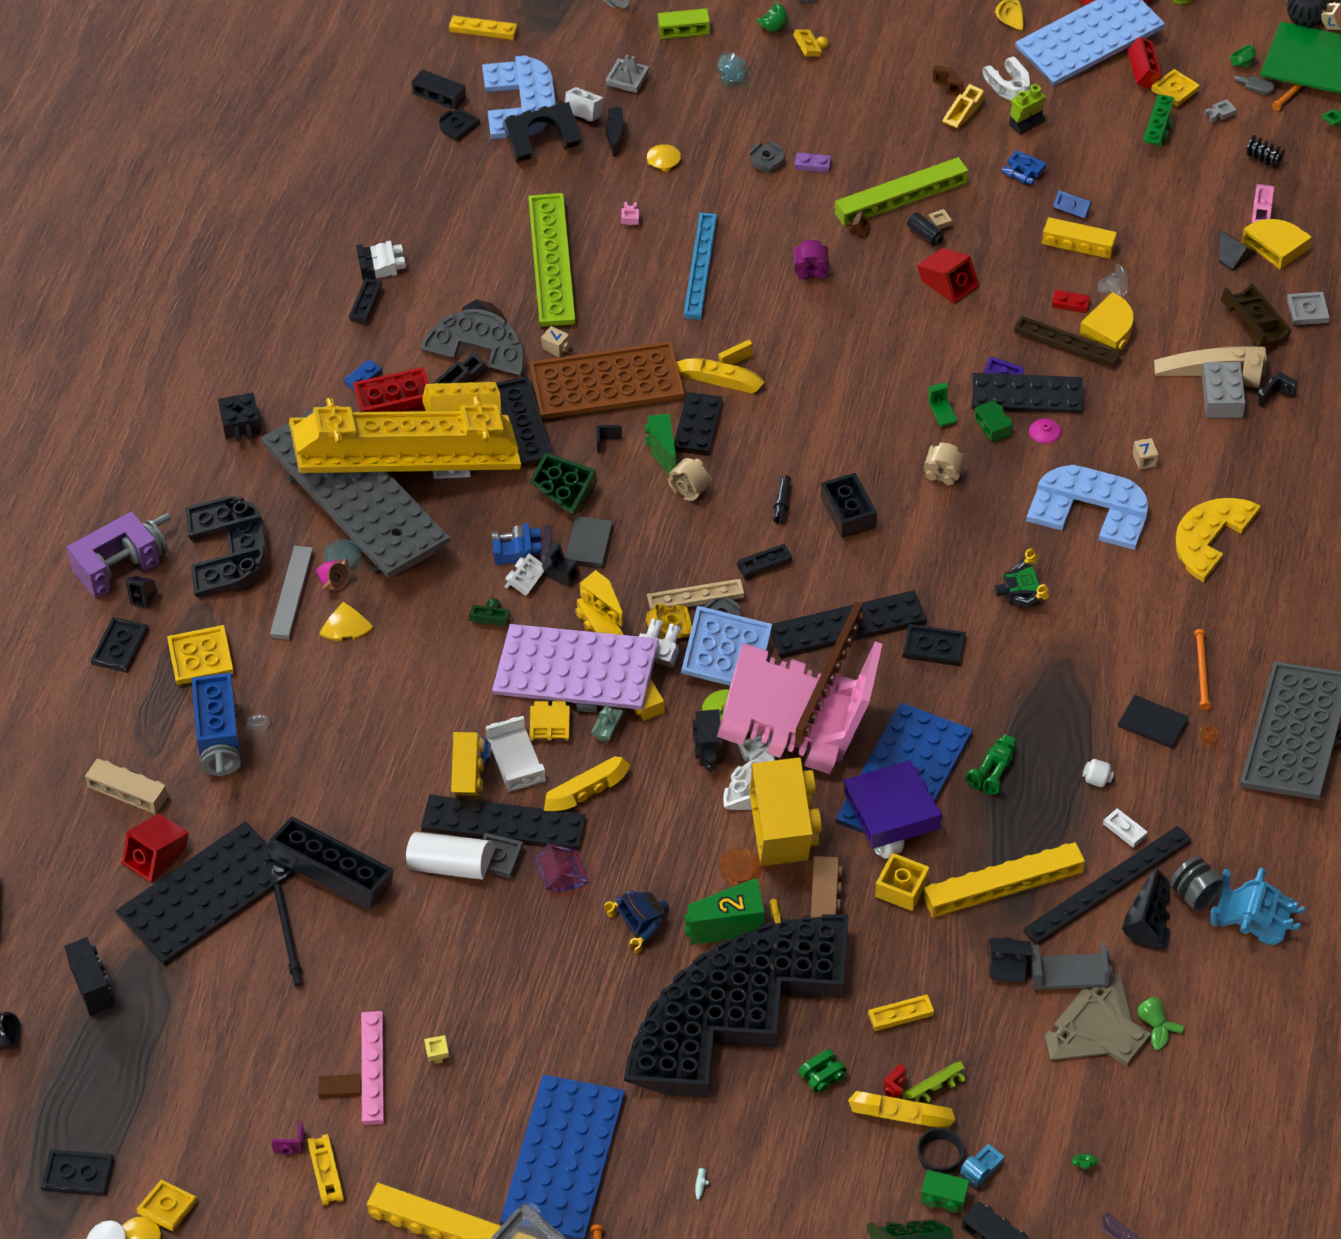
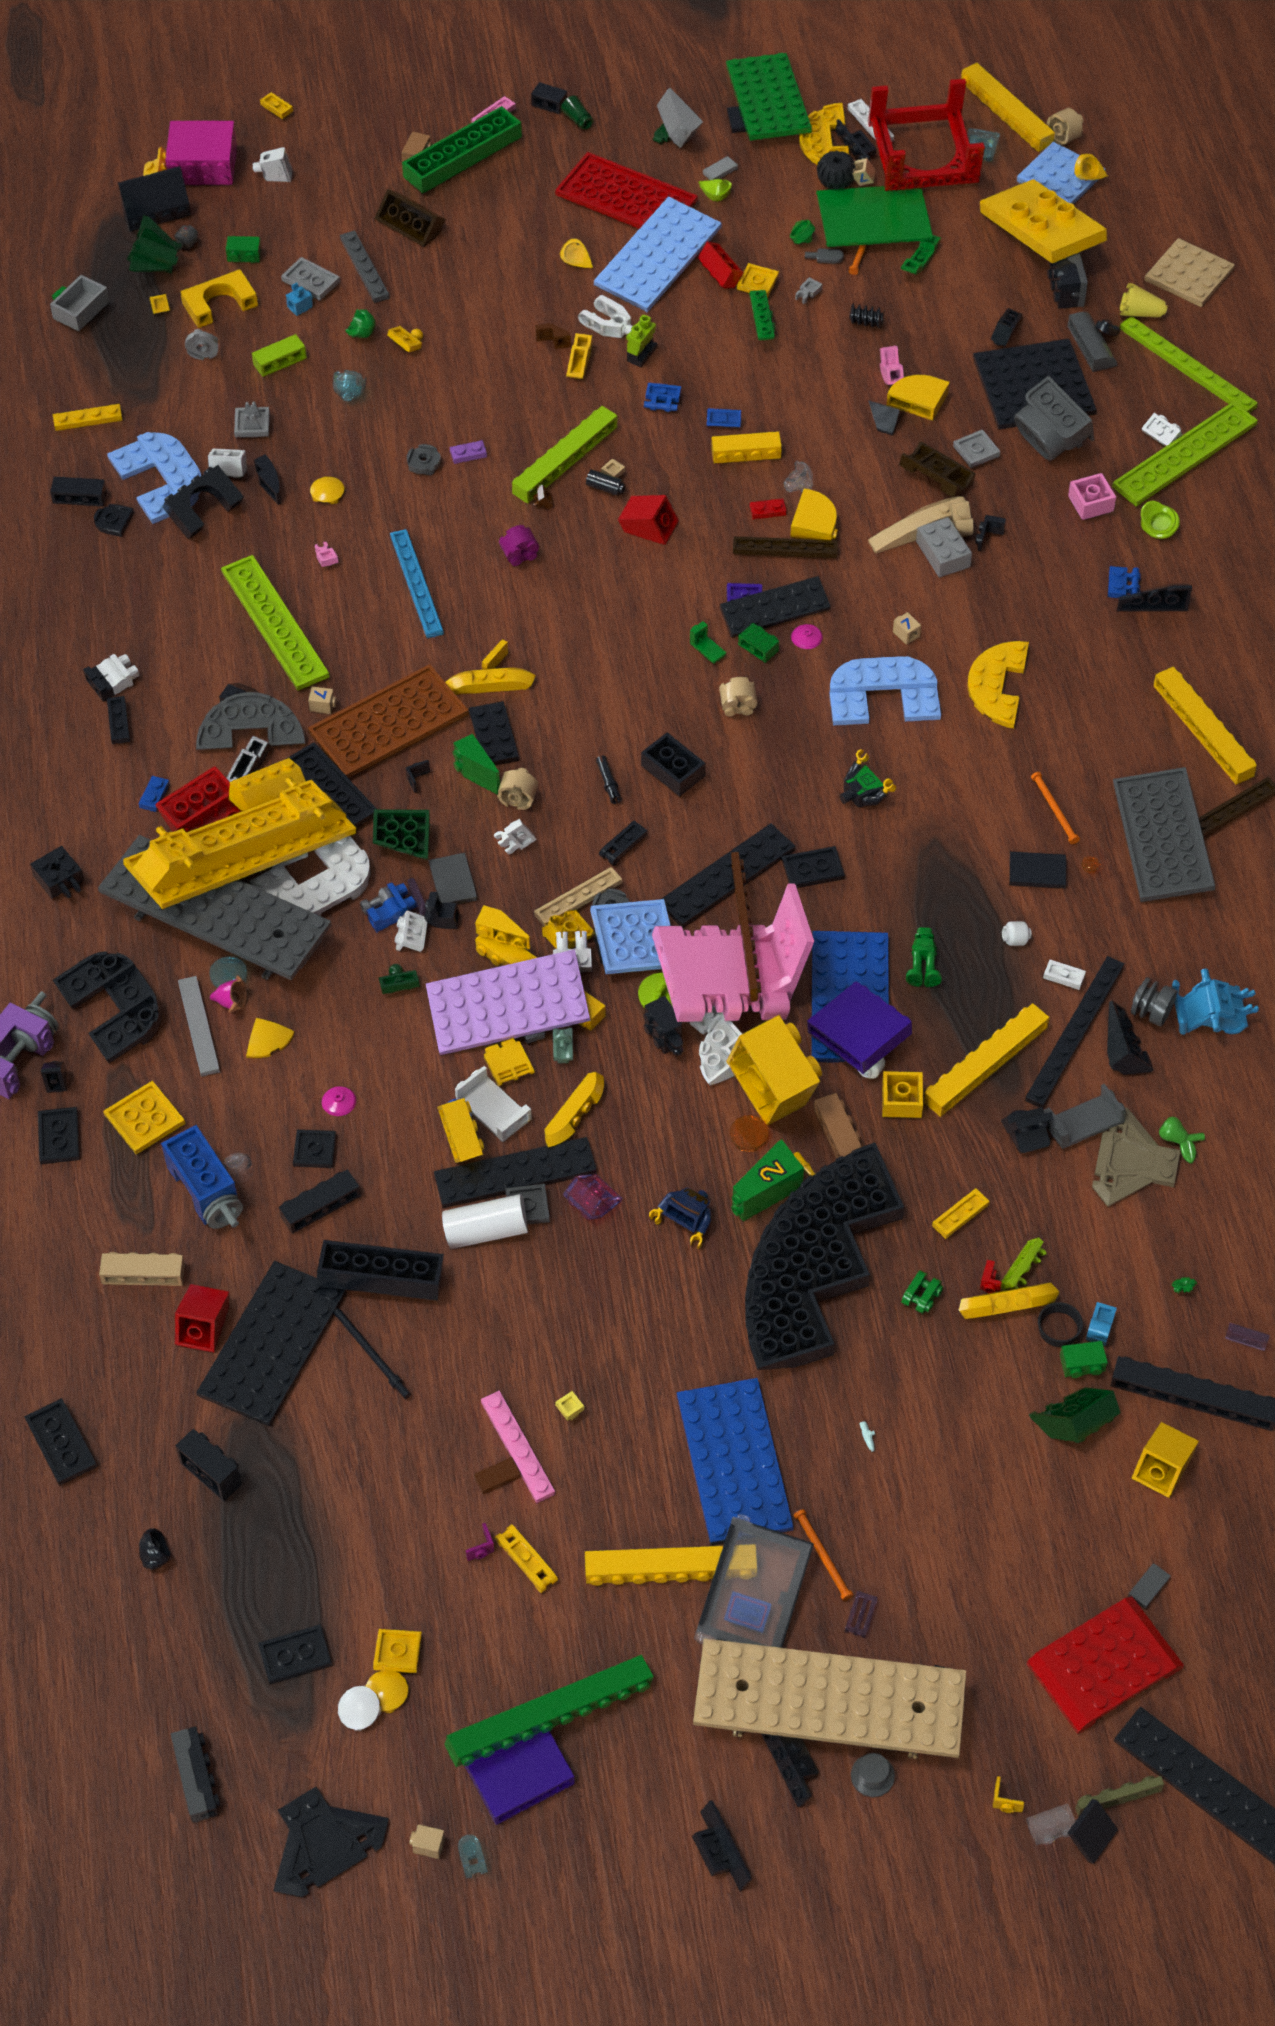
camera: 25 degrees left, 5 degrees up
(313, 783) = (319, 1201): none -> black brick
(335, 736) = (314, 1148): none -> black tile
(380, 702) = (339, 1101): none -> dark pink piece
(491, 507) = (344, 878): none -> white plate
(663, 520) = (515, 835): none -> white plate

